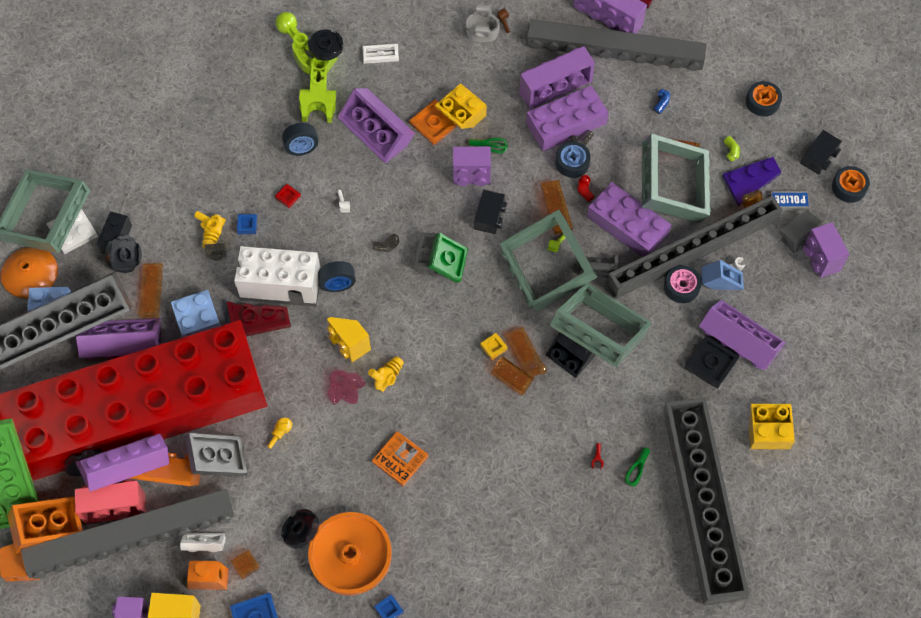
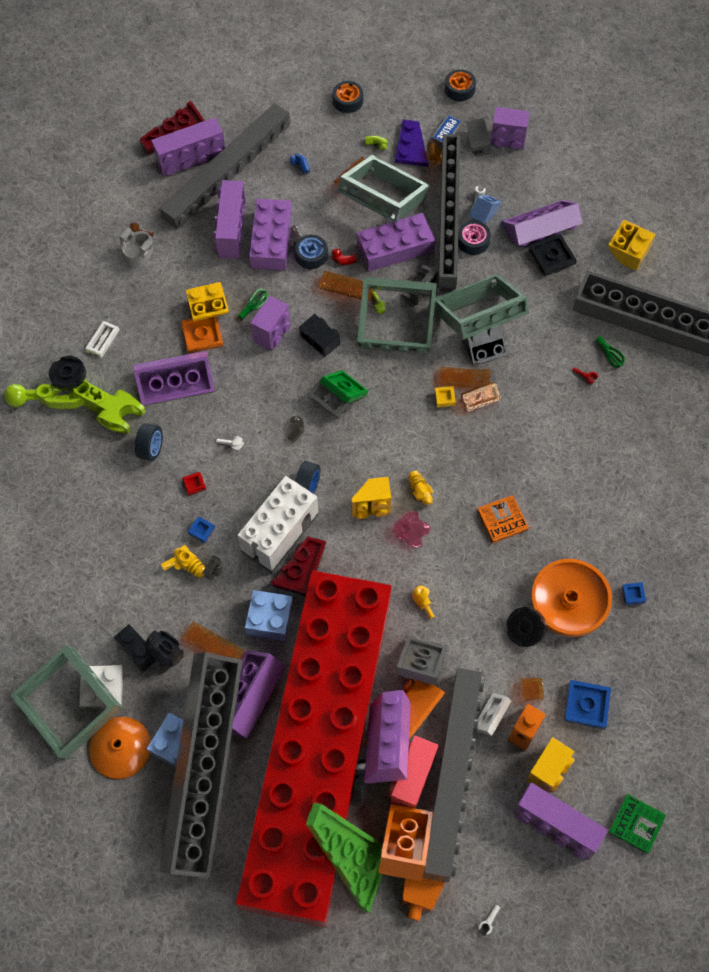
camera: 60 degrees left, 0 degrees up
(821, 152) = (421, 87): black brick -> none

